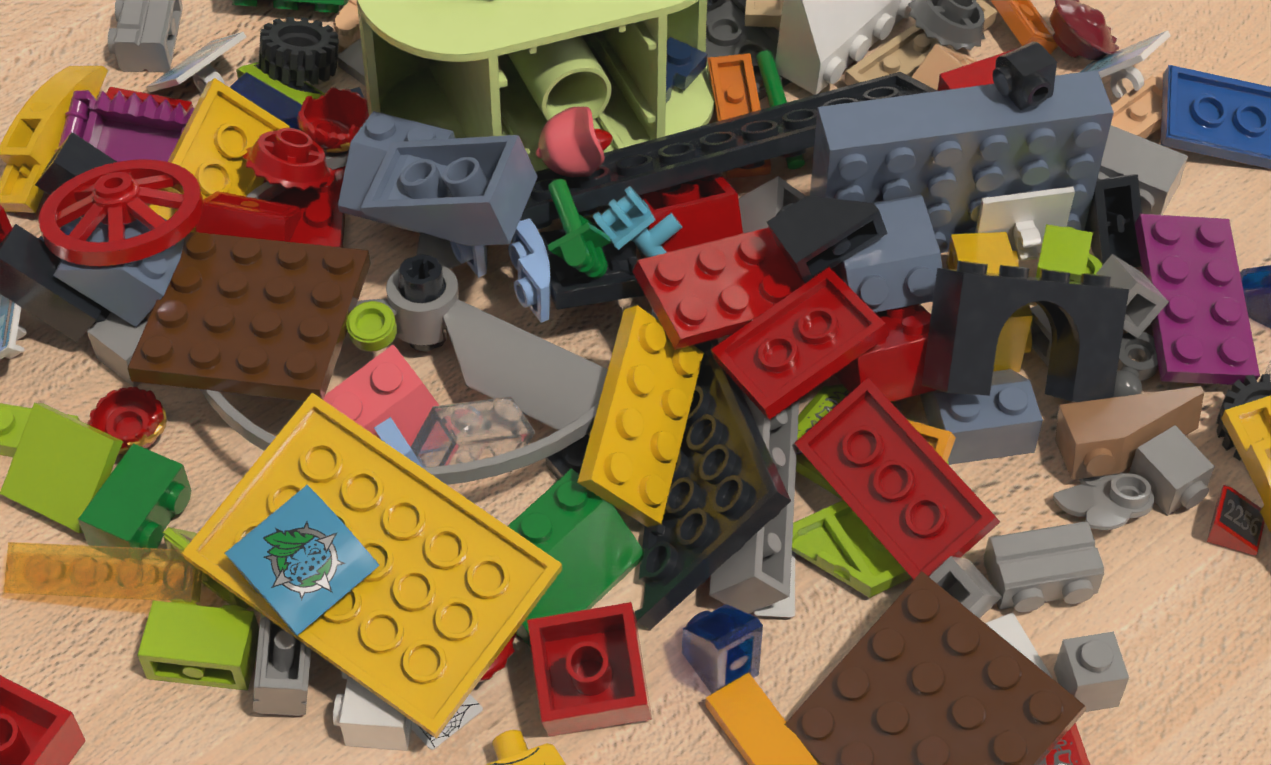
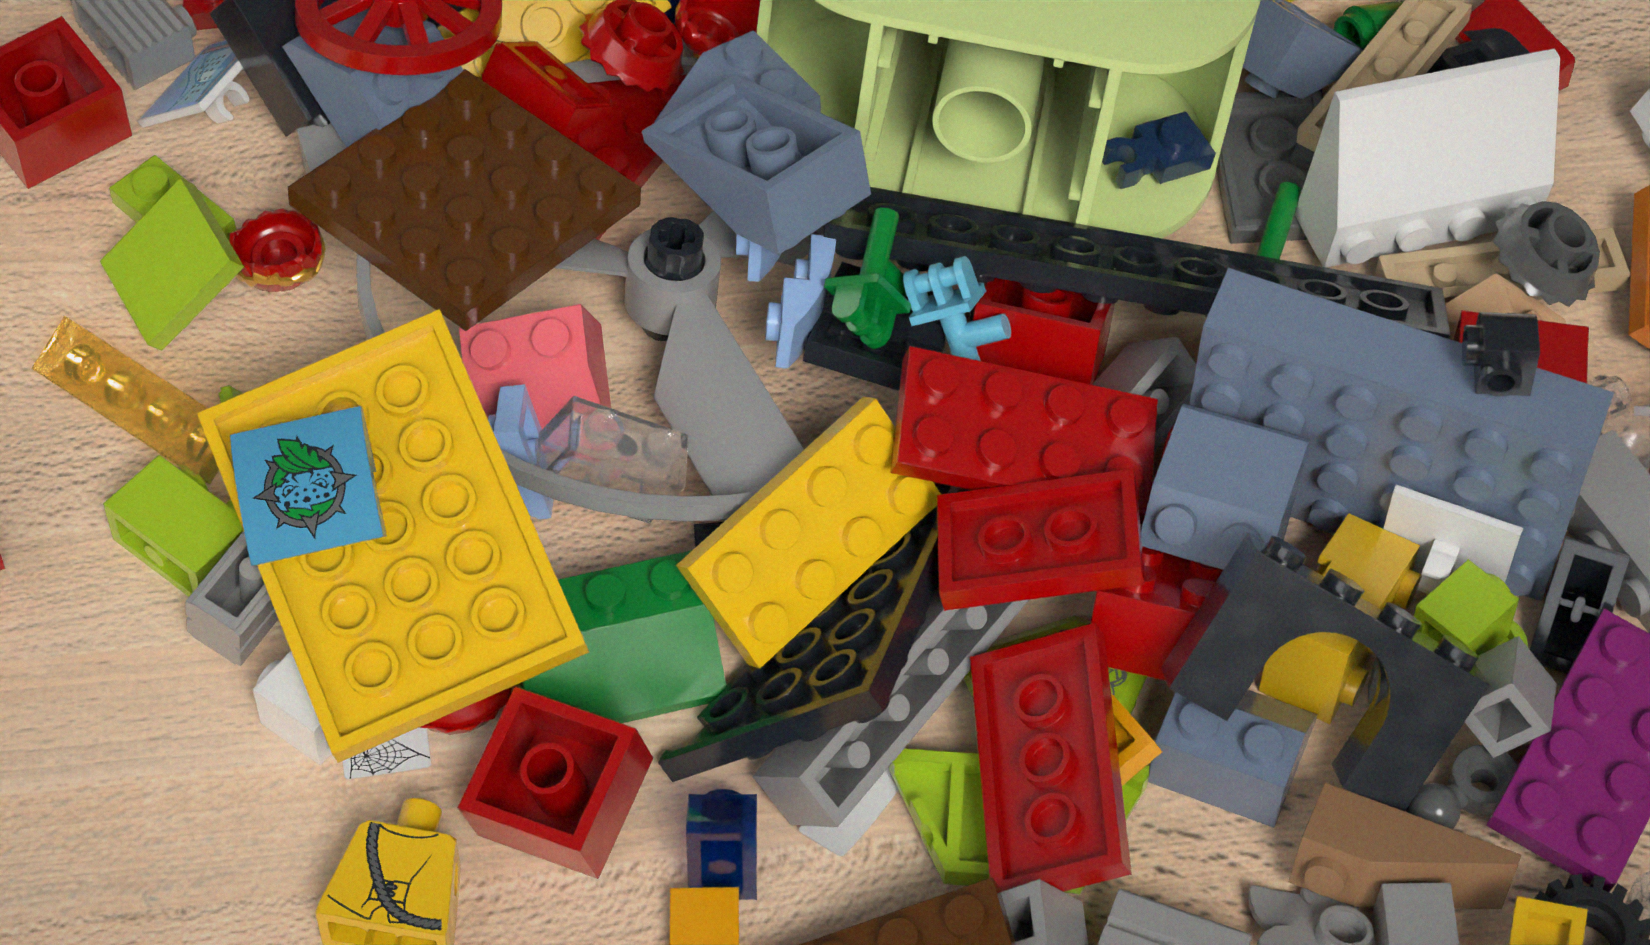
camera: 30 degrees right, 0 degrees up
(136, 501) = (224, 342): green brick -> none
(371, 326) = (583, 274): lime tile -> none
(572, 144) = (948, 179): coral hair -> none
(735, 95) = (1220, 220): orange tile -> none
(824, 232) = (1146, 424): black slope -> none

